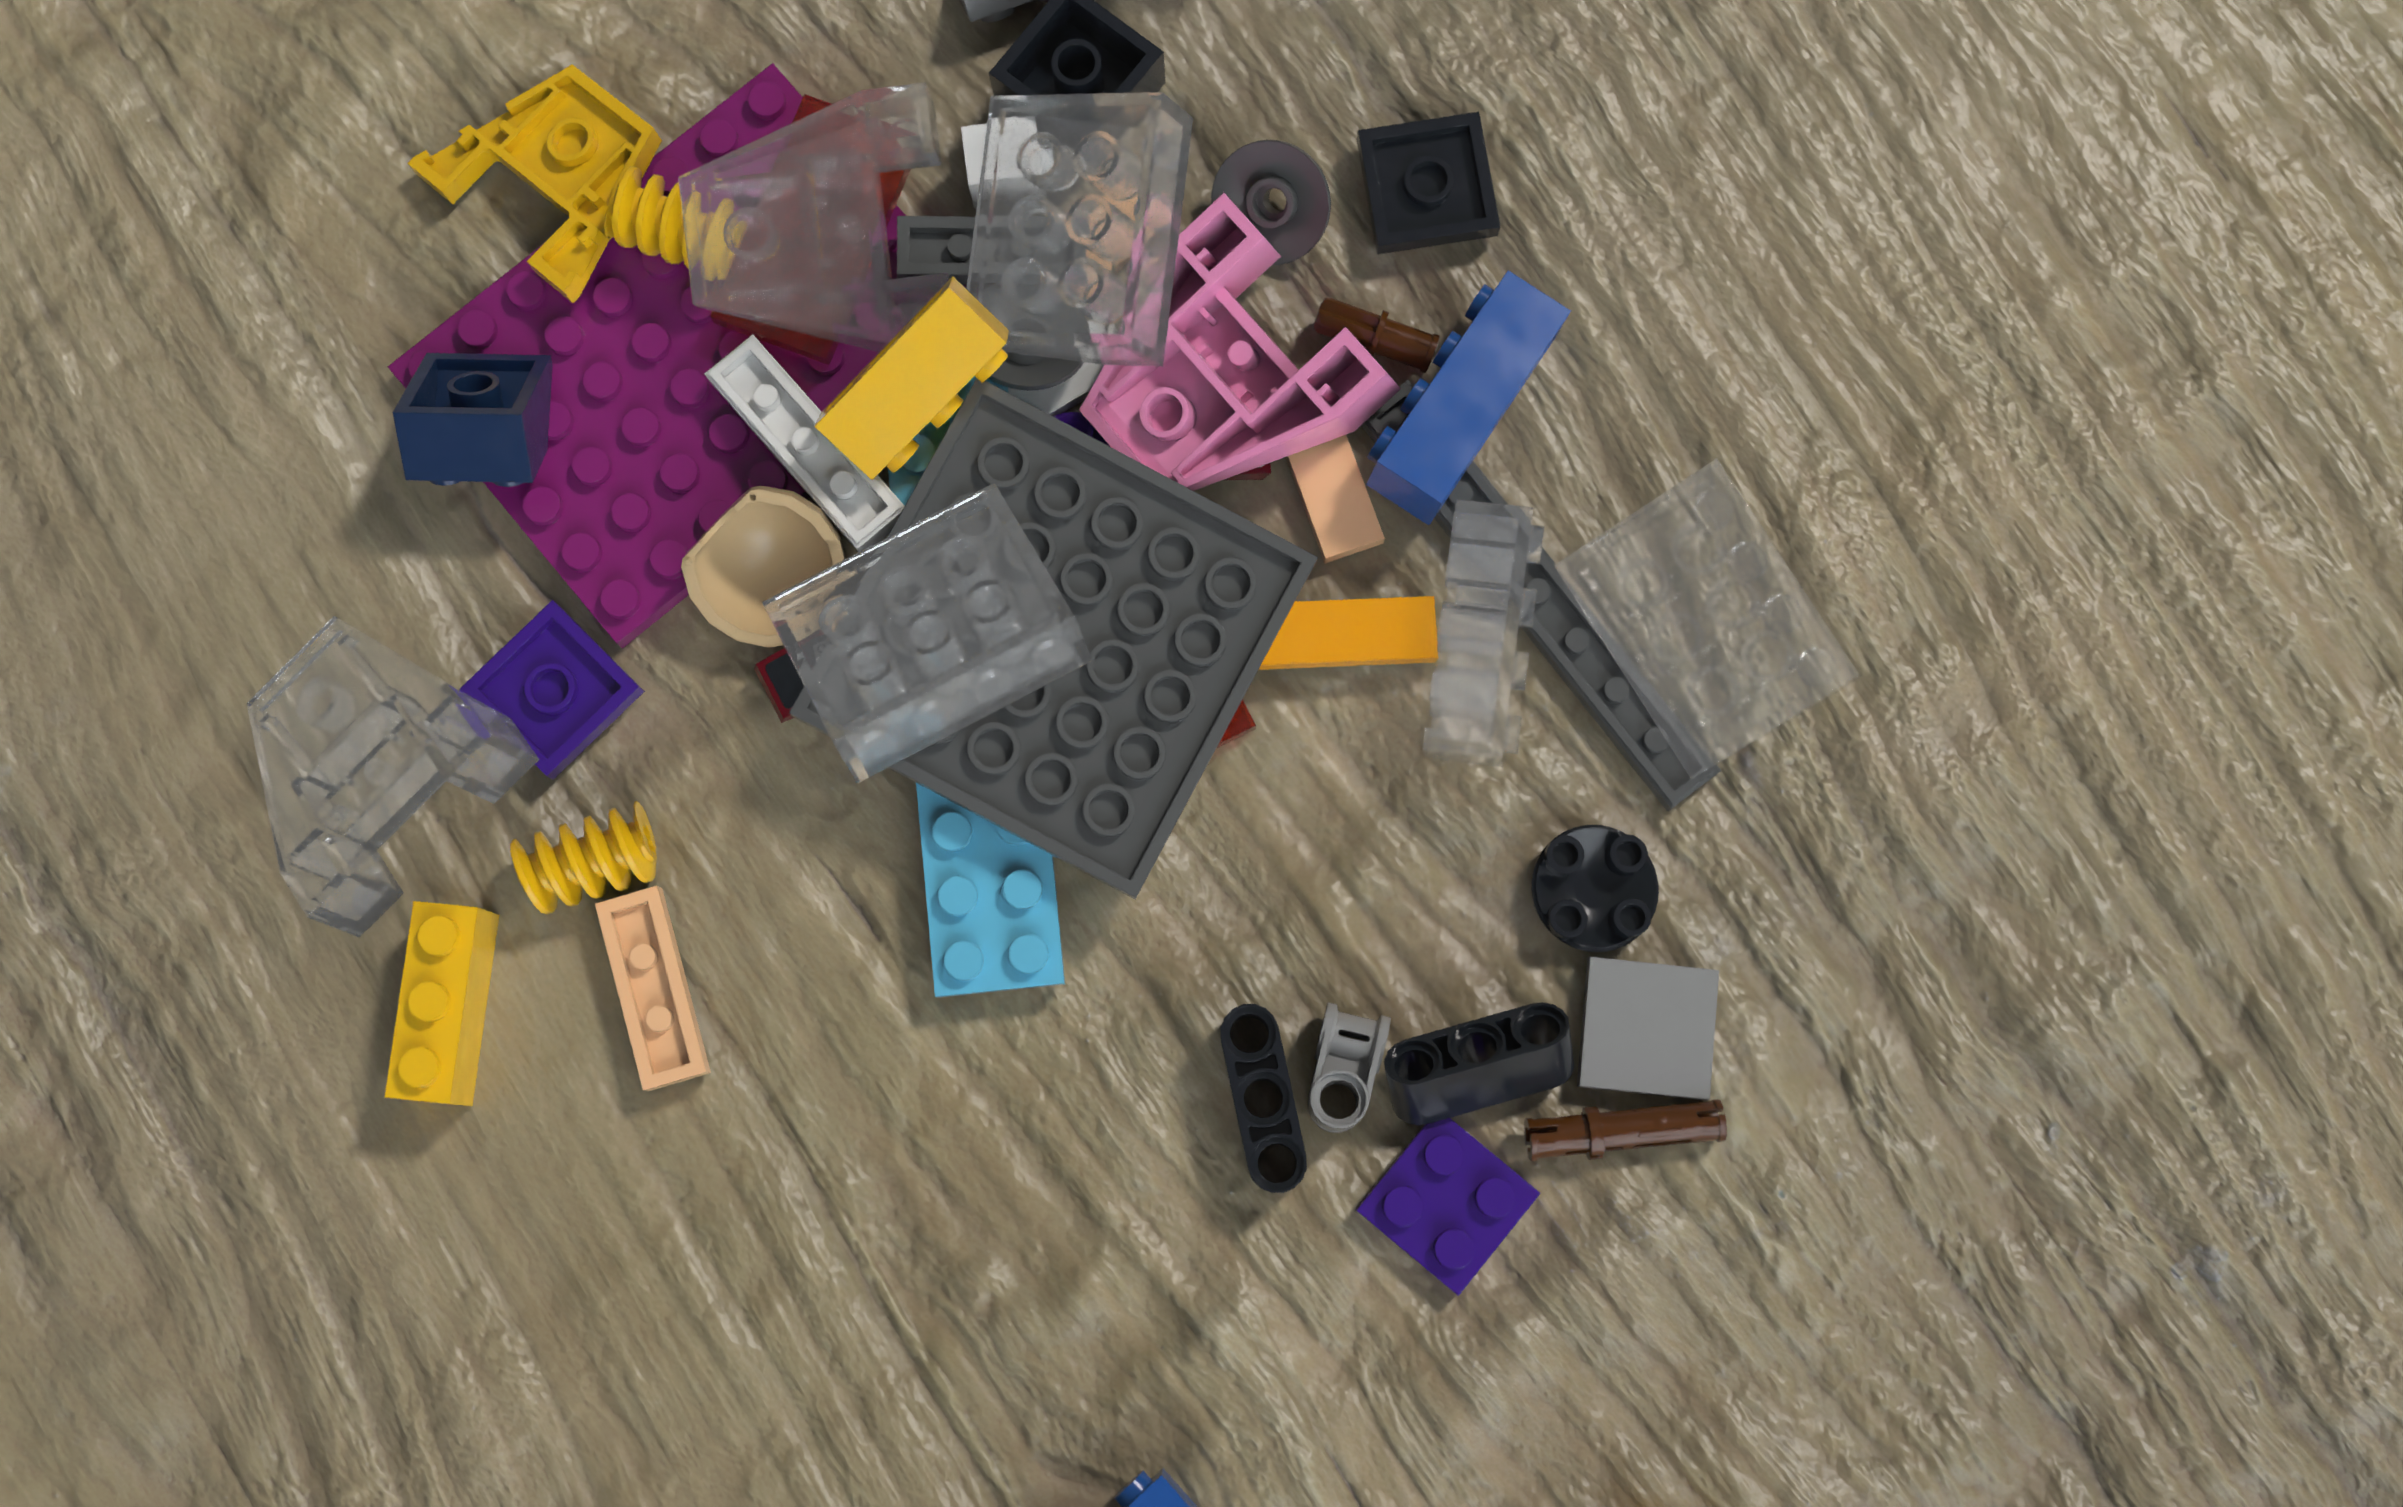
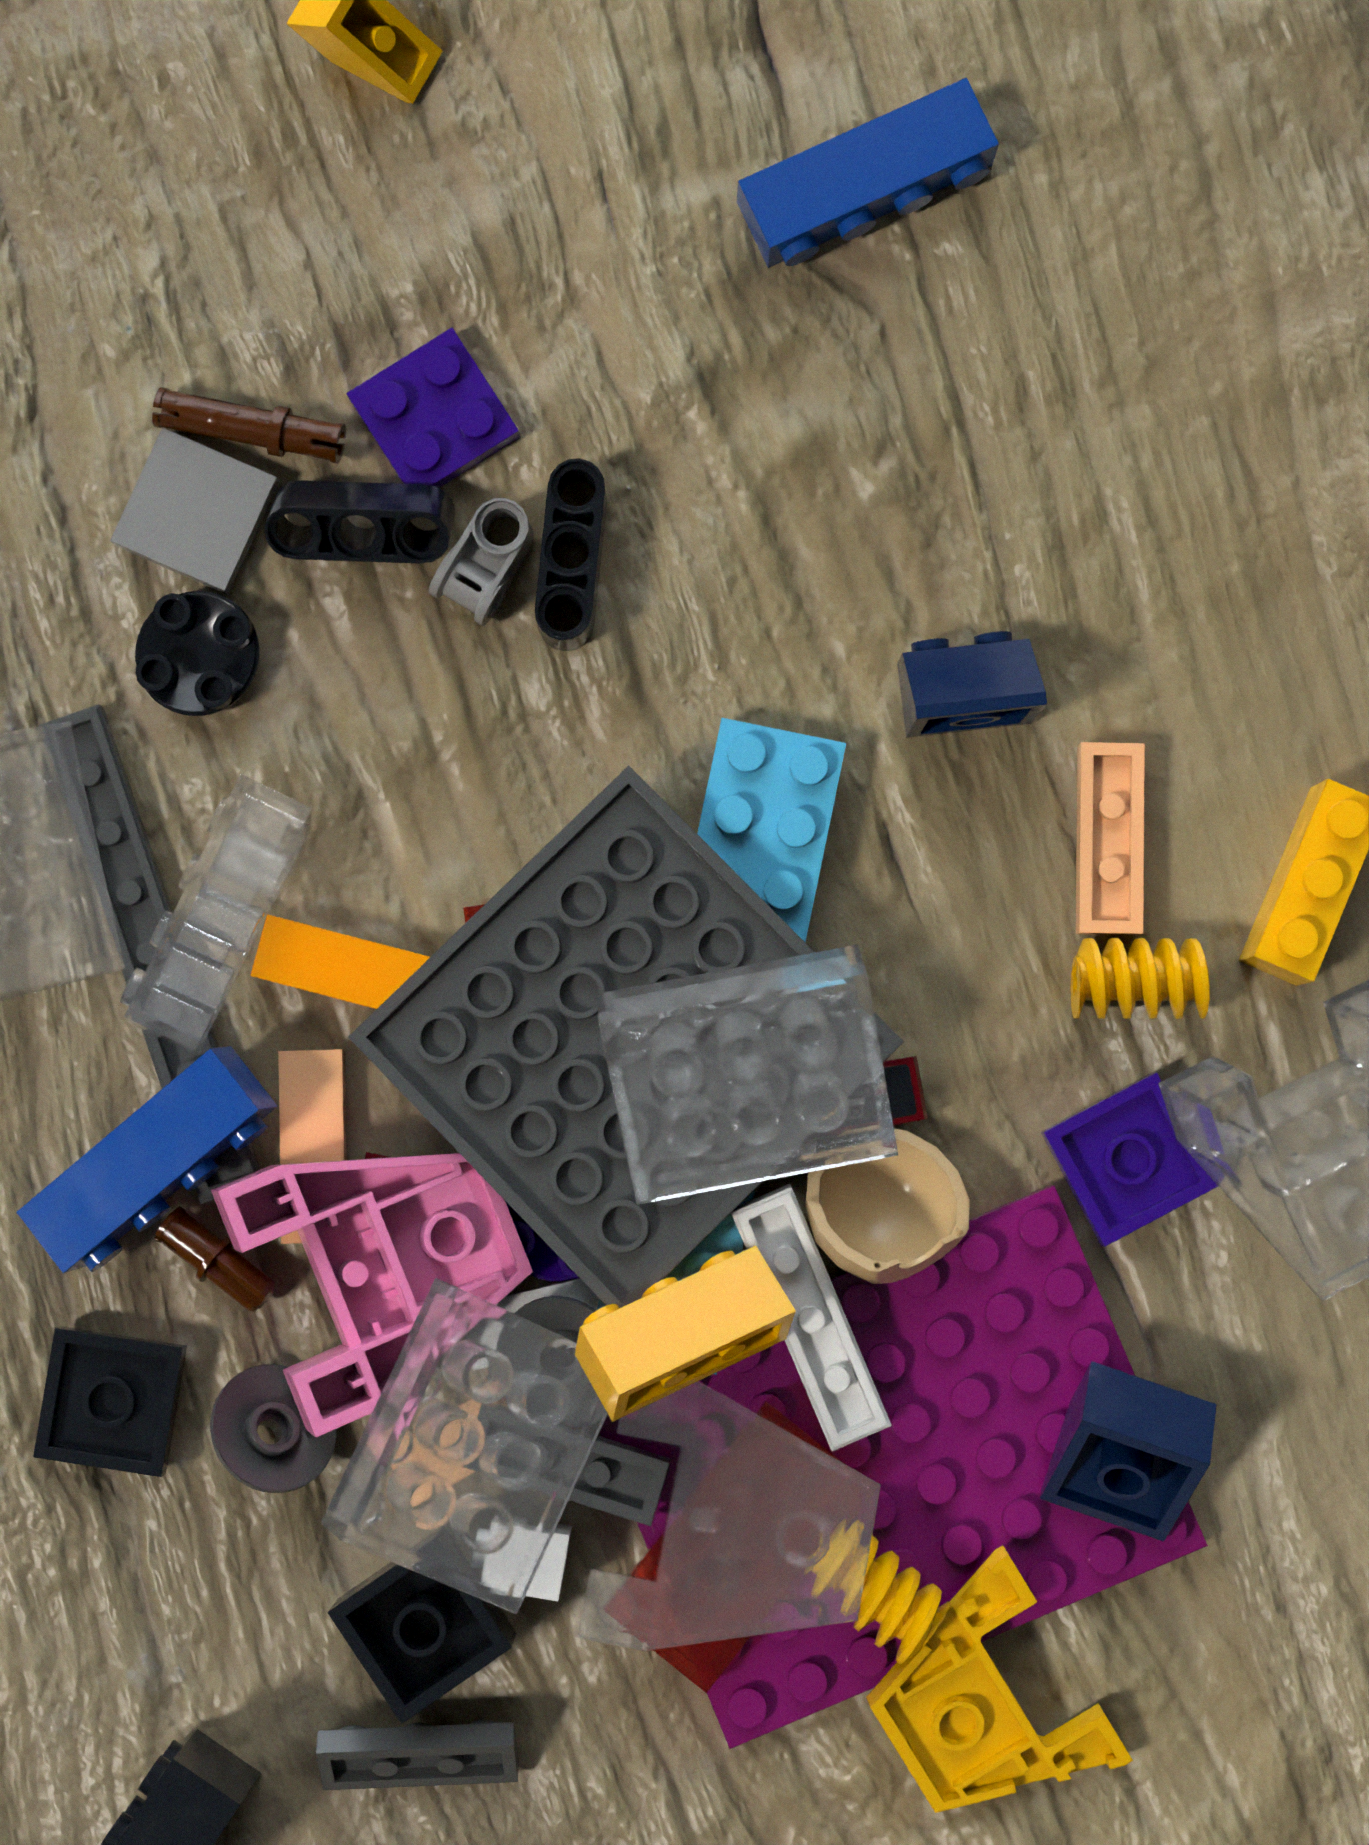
camera: 165 degrees left, 5 degrees up
(829, 1090) = (969, 685): none -> dark blue slope

